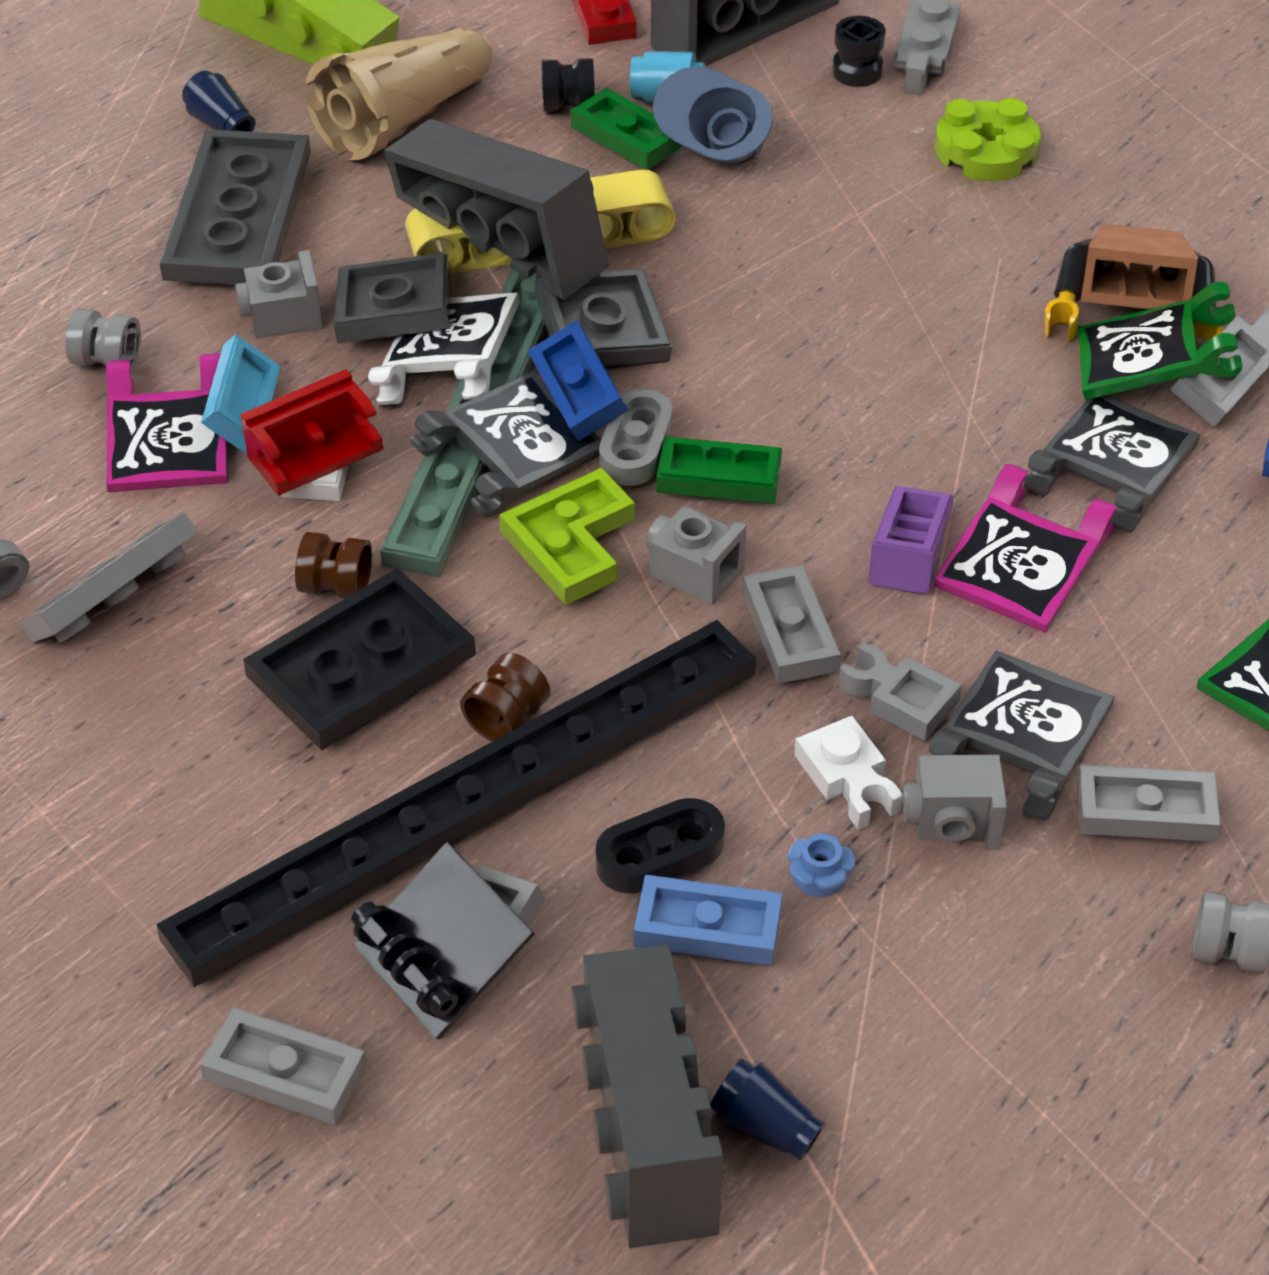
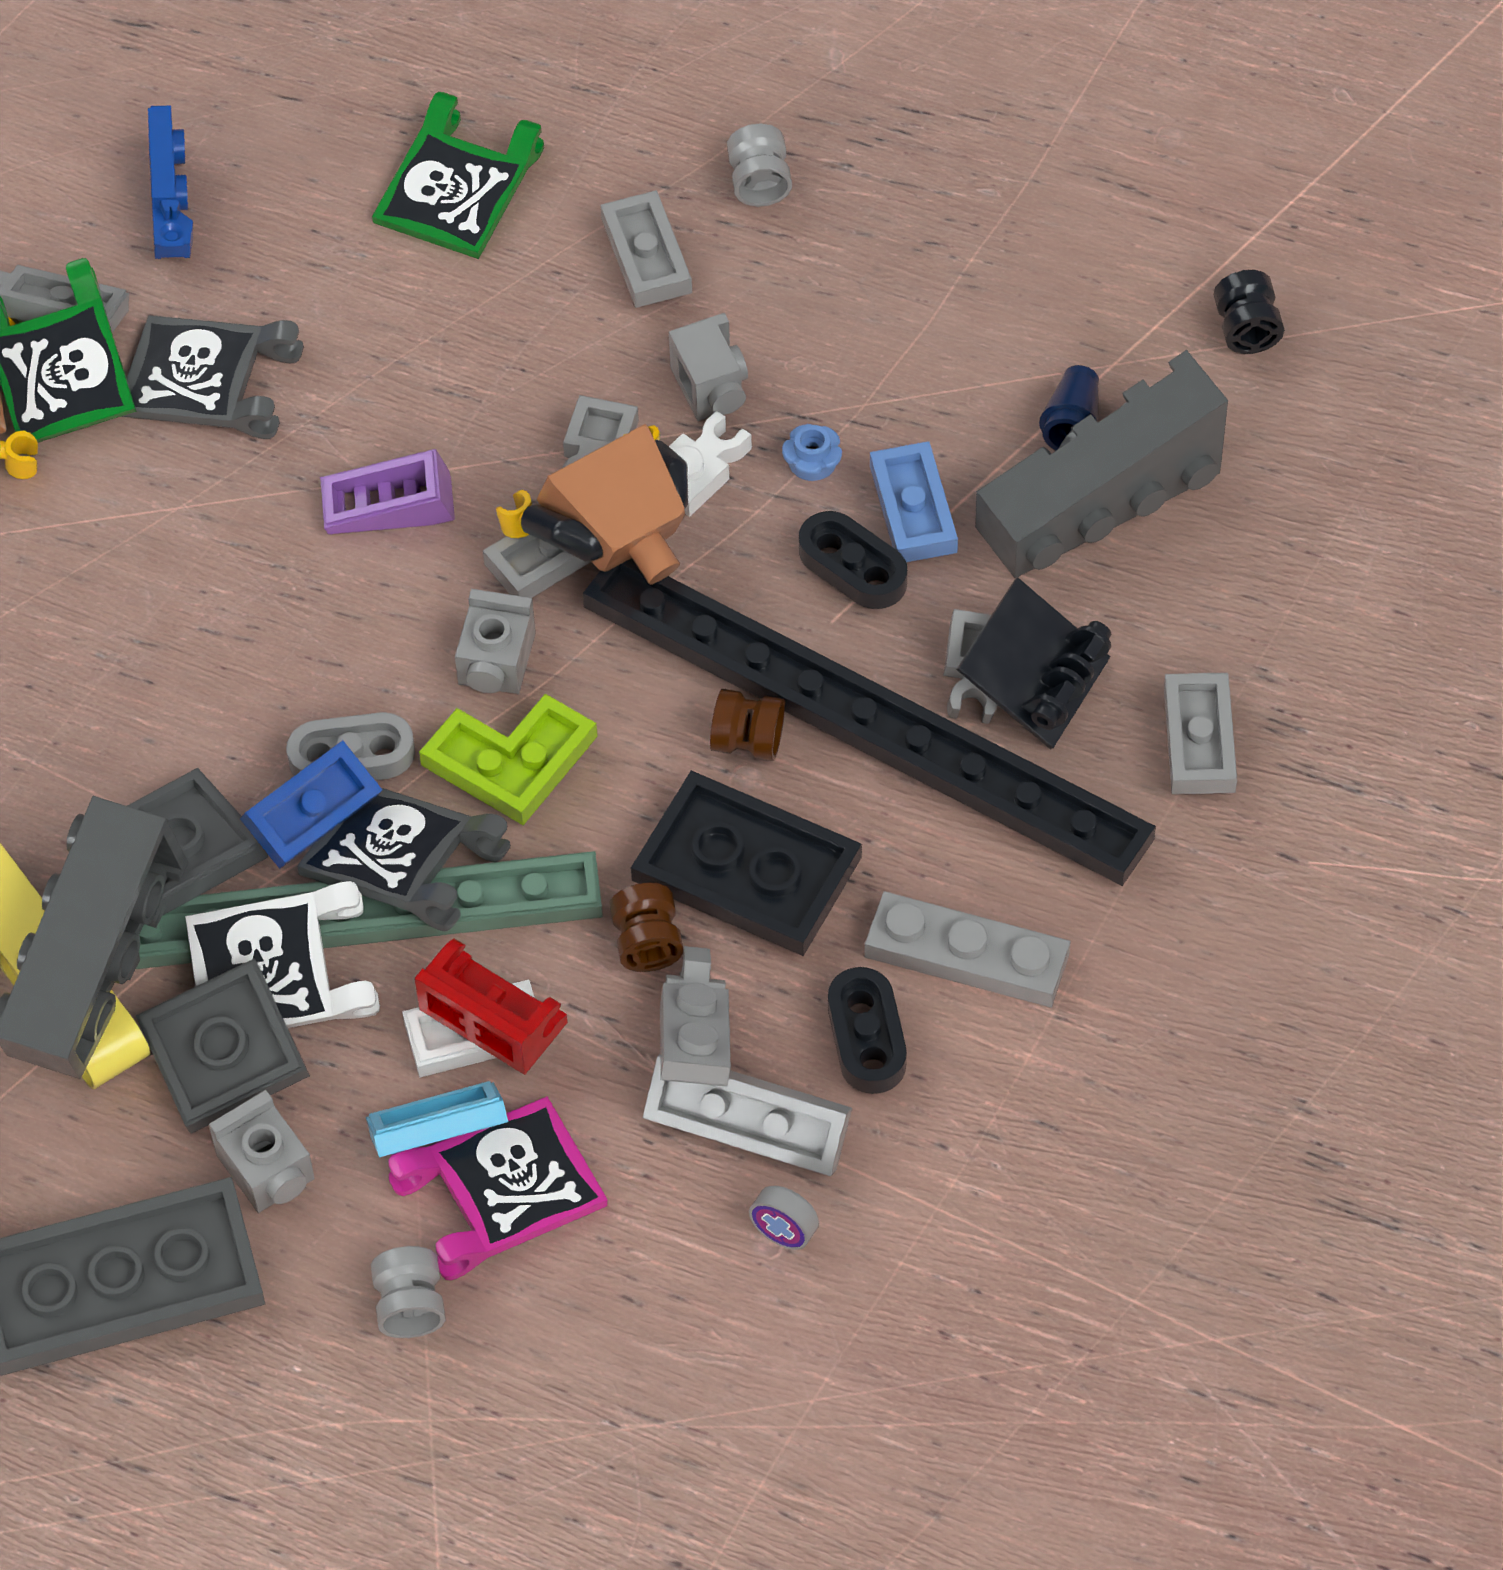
camera: 110 degrees left, 10 degrees up
(134, 685) = (867, 1034): none -> black plate
(172, 796) = (967, 949): none -> light grey plate
(203, 551) = (695, 1024): none -> light grey hinge
(719, 470) = (368, 662): green plate -> none
(788, 644) = (610, 505): none -> nougat torso
(1020, 559) = (373, 408): flag -> none
(1029, 721) = (590, 355): flag -> none

